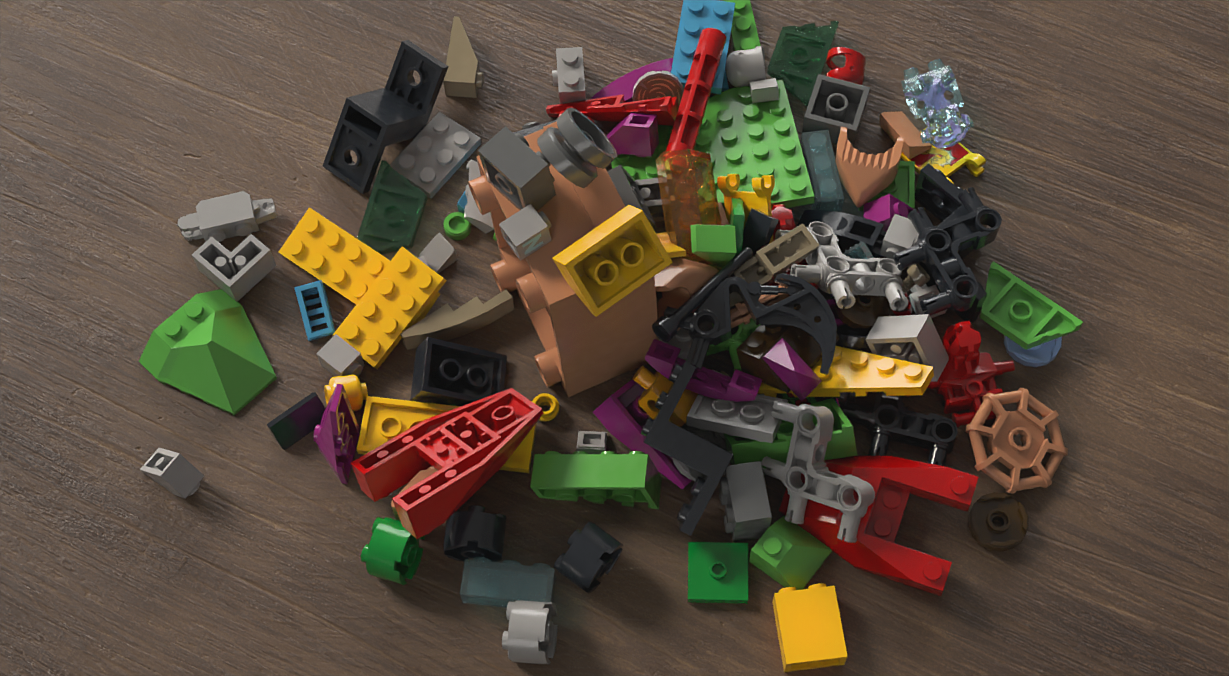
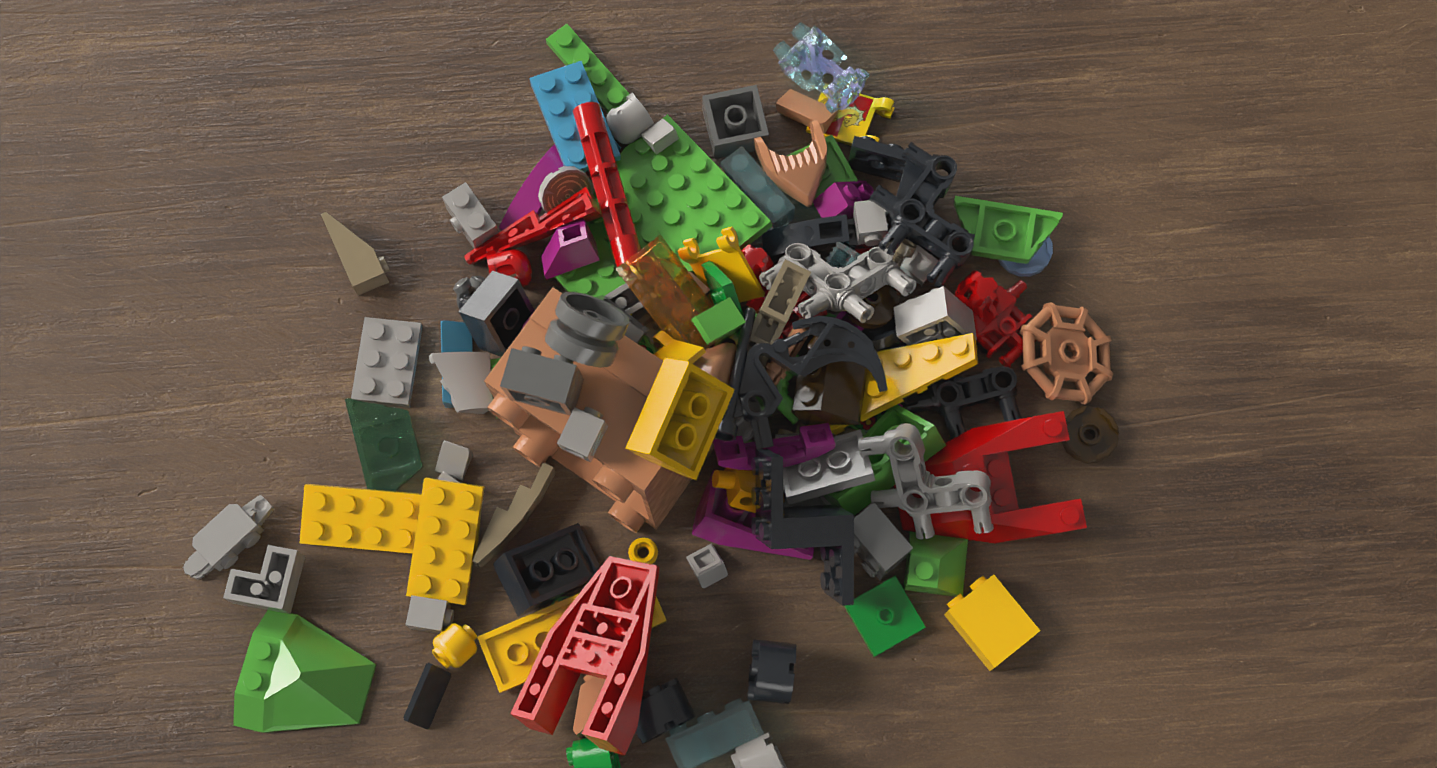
camera: 35 degrees left, 10 degrees up
(307, 290) = (380, 572): dark azure slope -> none
(338, 434) = (475, 693): magenta wedge -> none
(384, 116) = (321, 354): black bracket -> none
(456, 226) = (452, 423): bright green tile -> none
(597, 477) = (731, 593): bright green wedge -> none
(758, 230) = (746, 283): black slope -> none
(791, 369) = (852, 401): magenta slope -> none
(801, 57) = (671, 83): clear green wing -> none
(854, 65) = (722, 80): red helmet -> none

